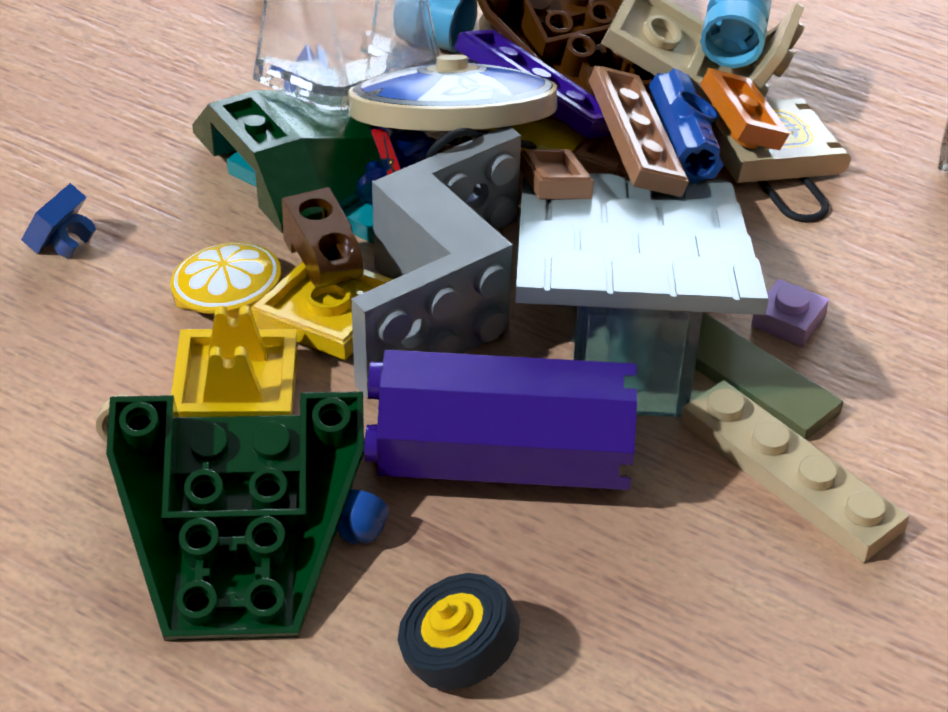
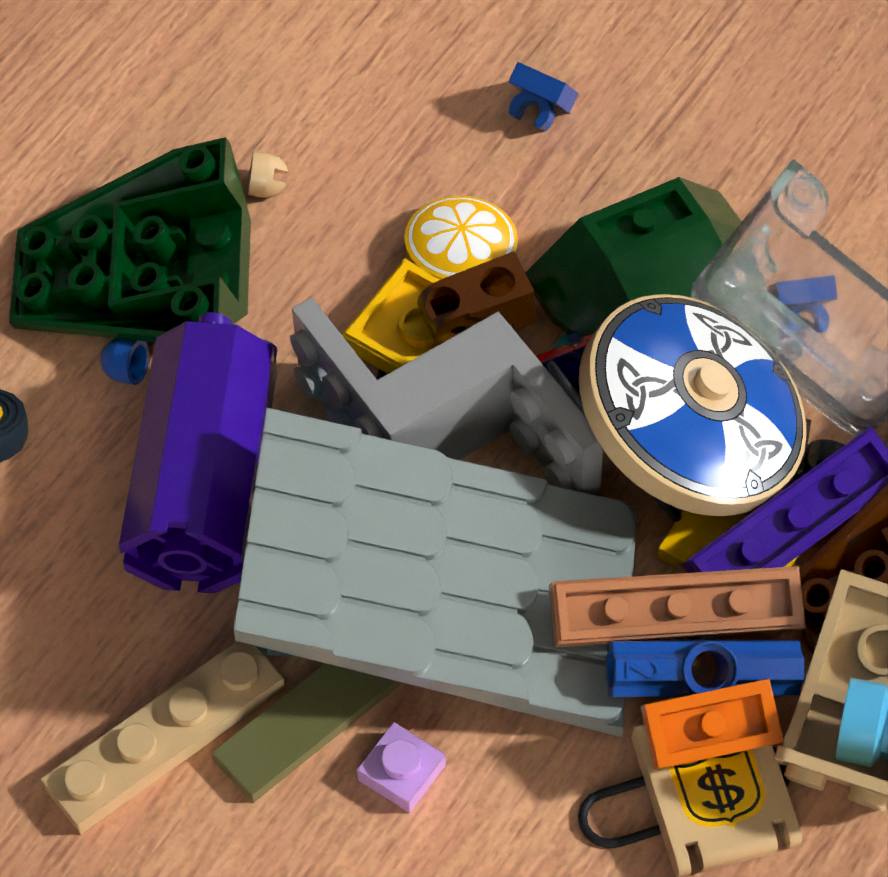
camera: 95 degrees right, 15 degrees up
(235, 368) = (310, 253): yellow plate -> none
(556, 174) = (591, 519): nougat tile -> none

